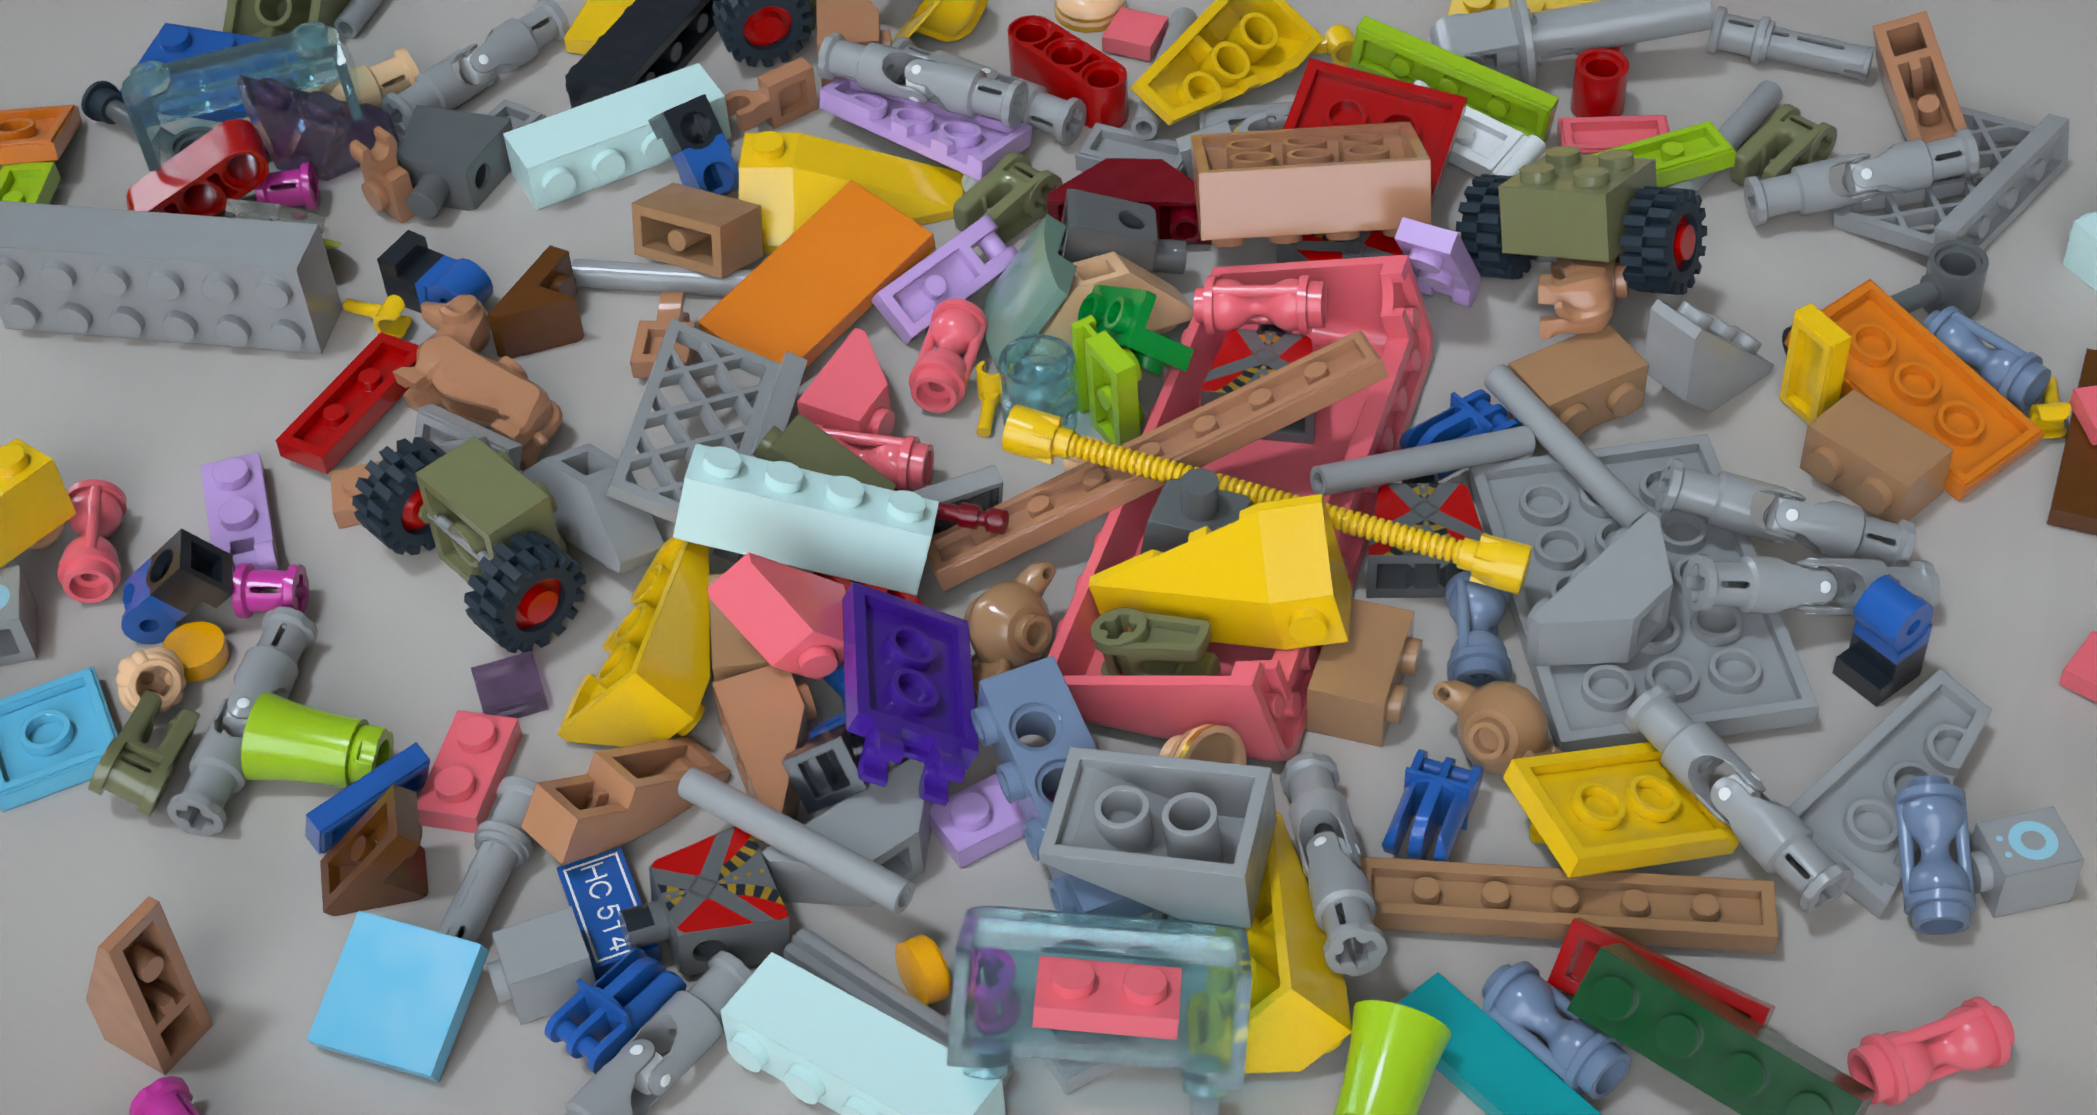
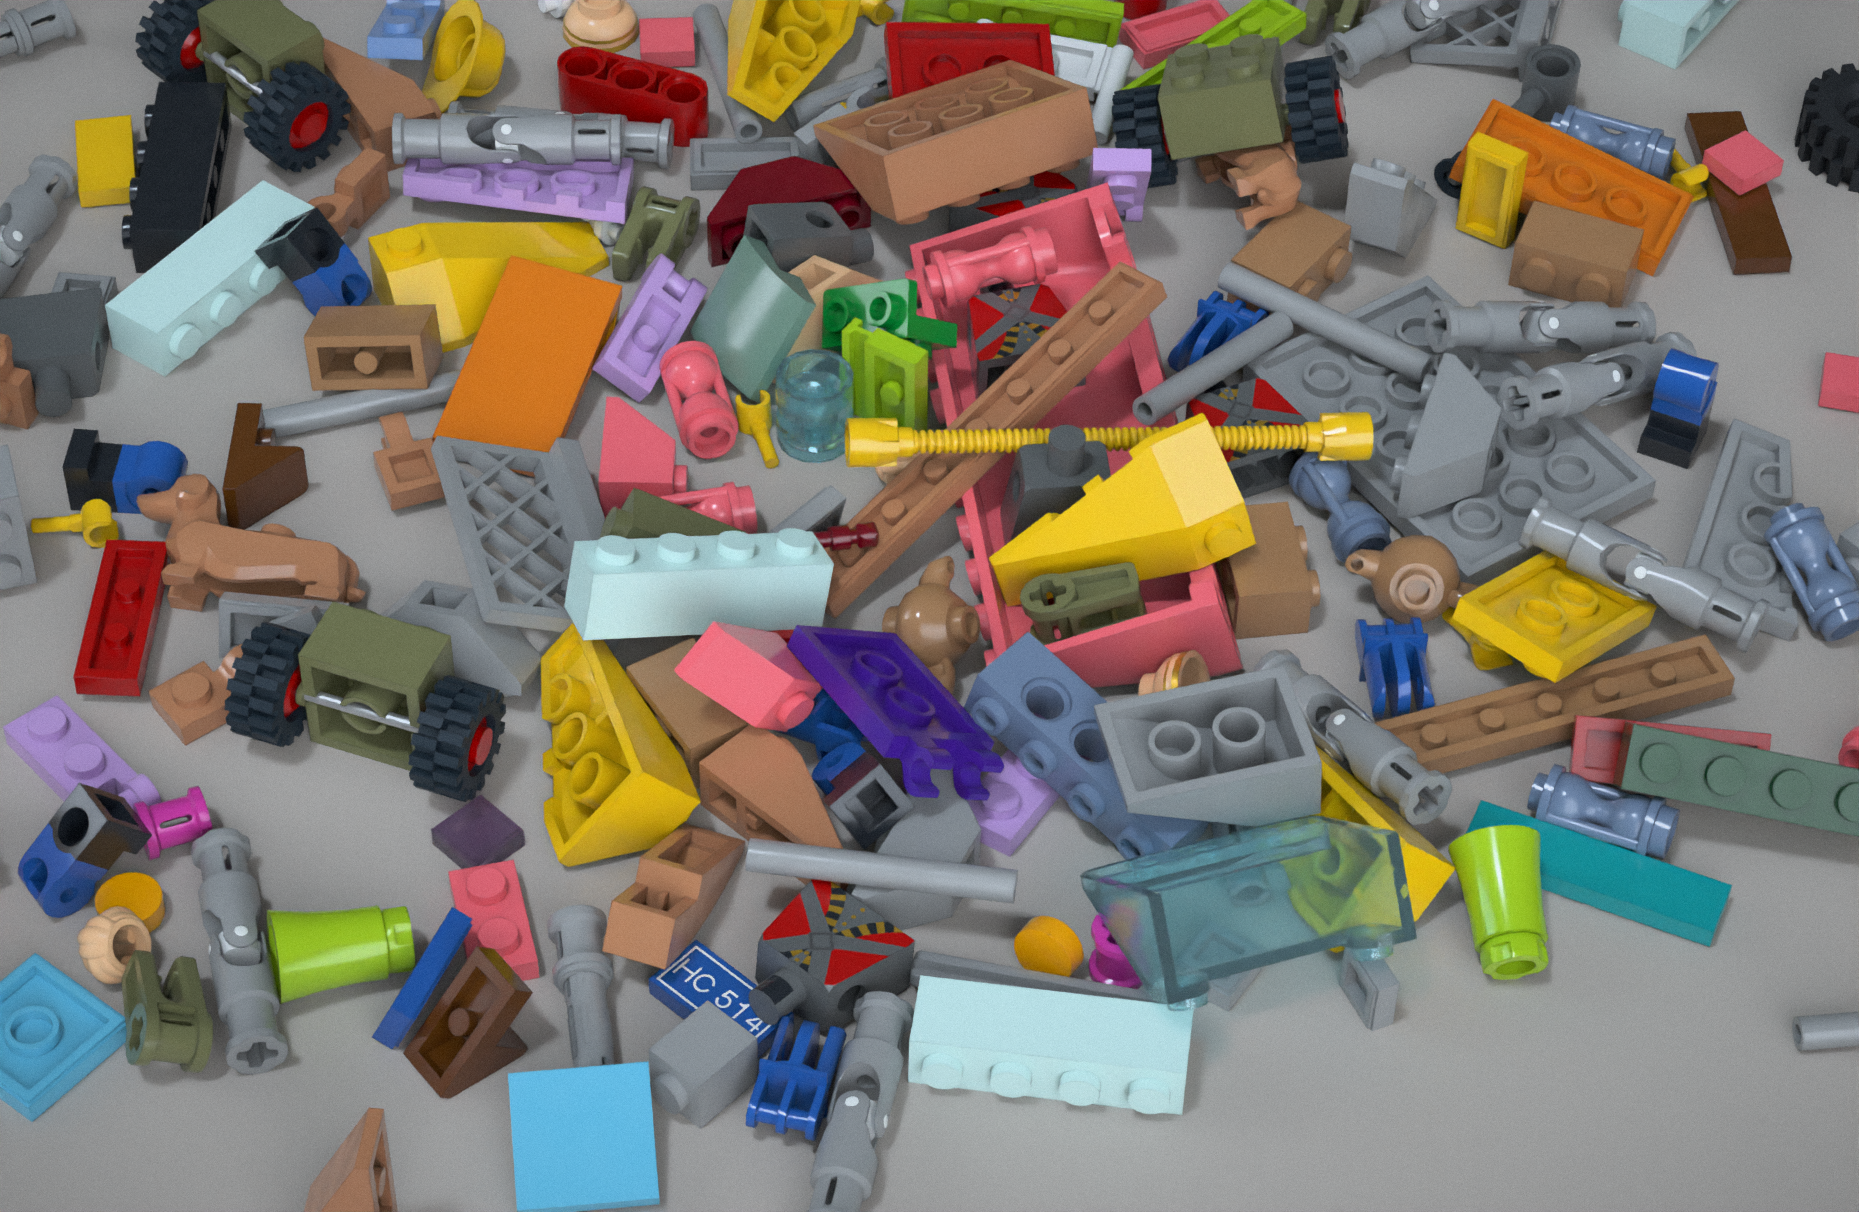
camera: 30 degrees left, 0 degrees up
(1107, 997) = (1251, 906): coral plate -> none

